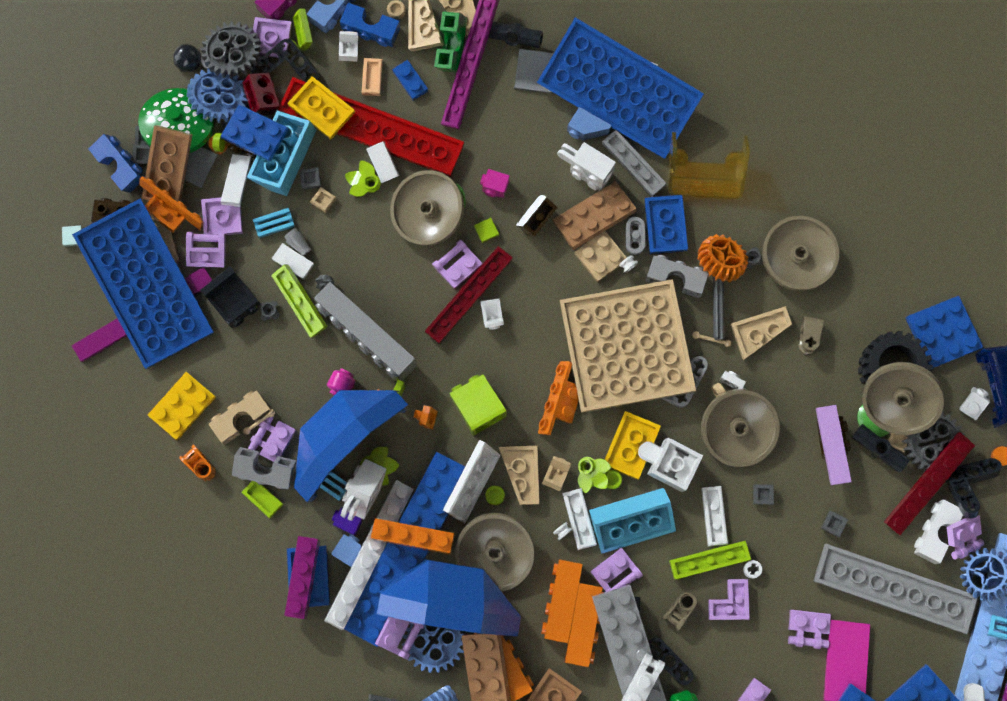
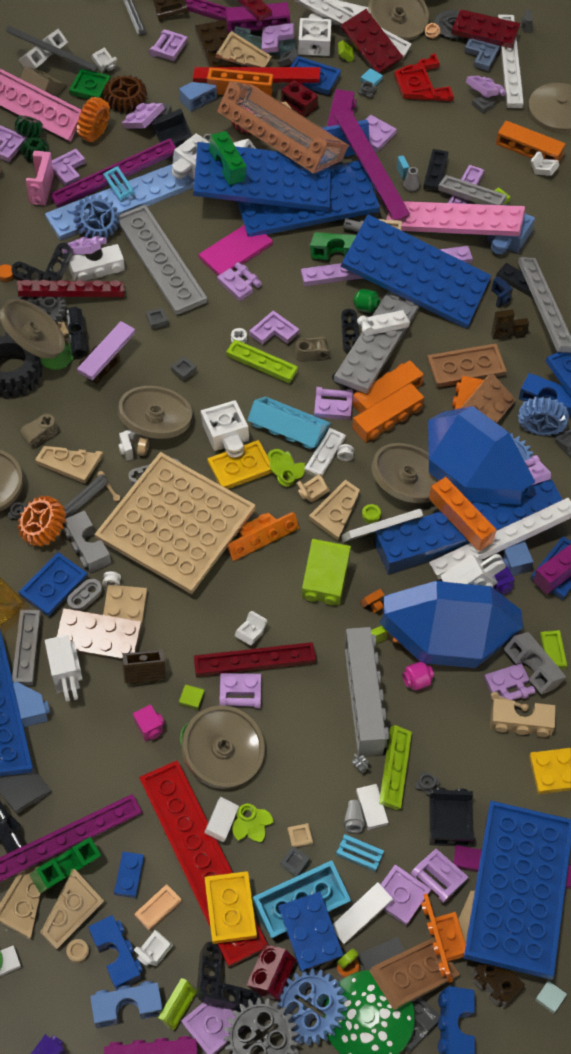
camera: 140 degrees left, 20 degrees down
(714, 516) = (230, 384): white tile -> none

